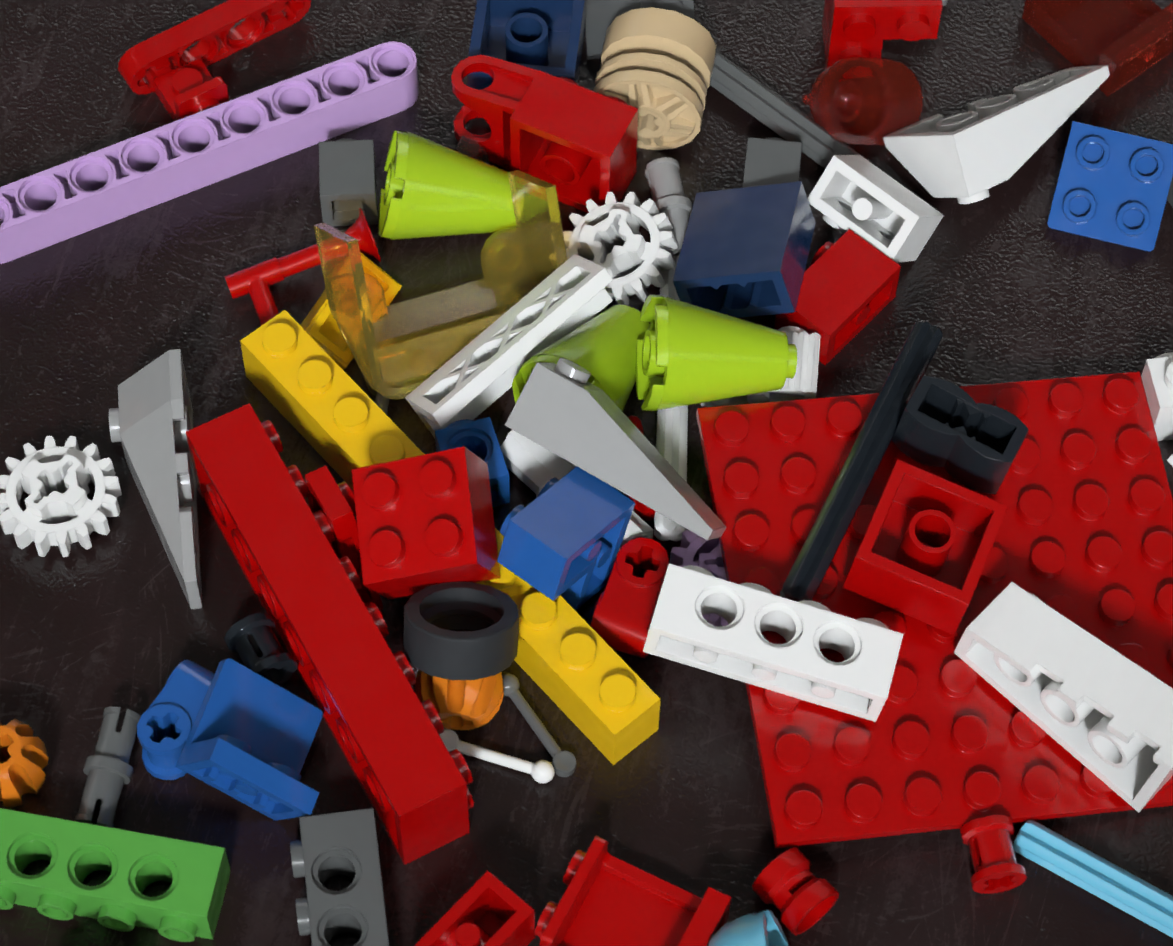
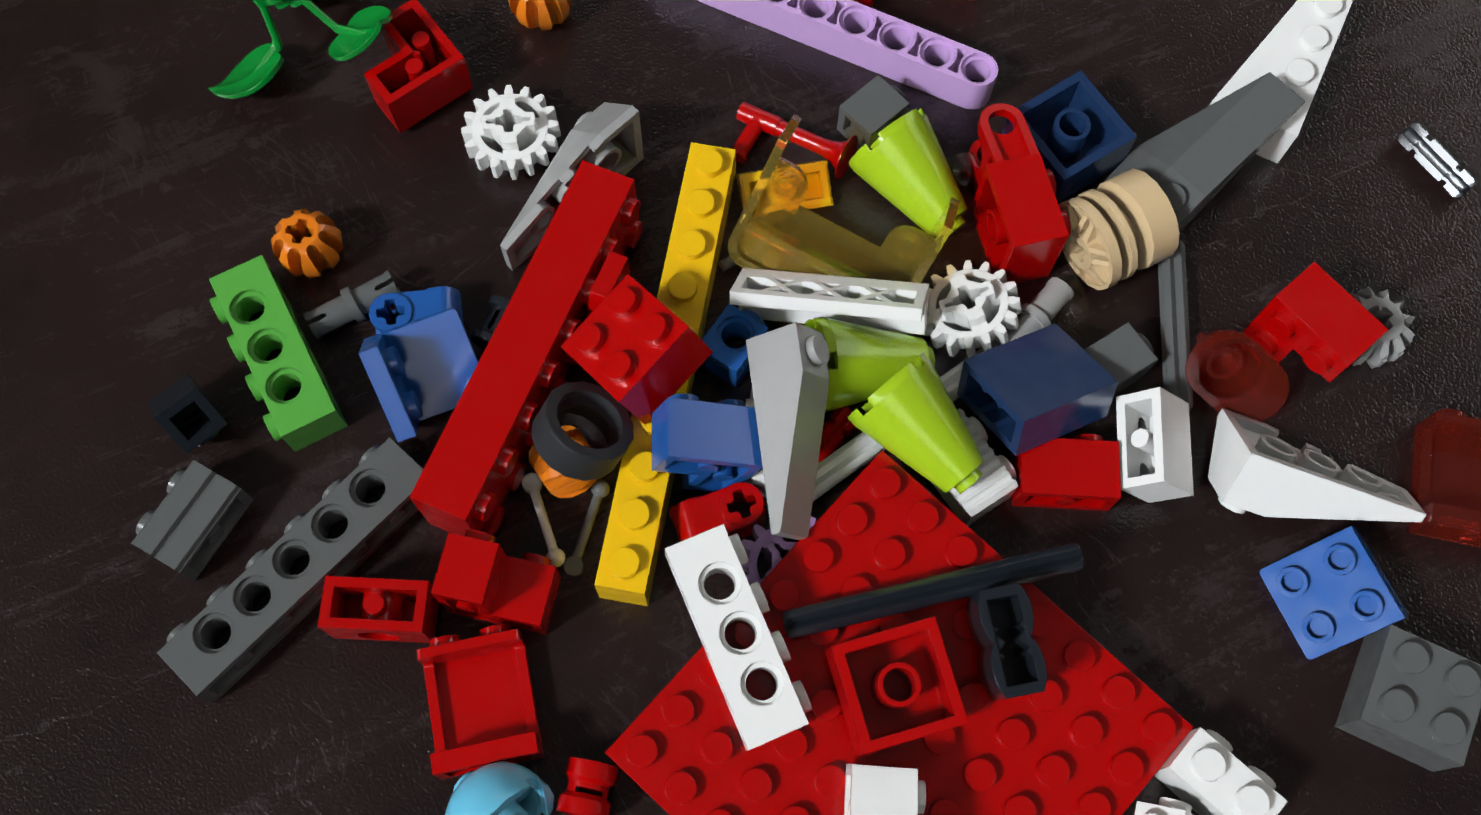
camera: 50 degrees right, 10 degrees up
(533, 826) = (489, 586): none -> red brick

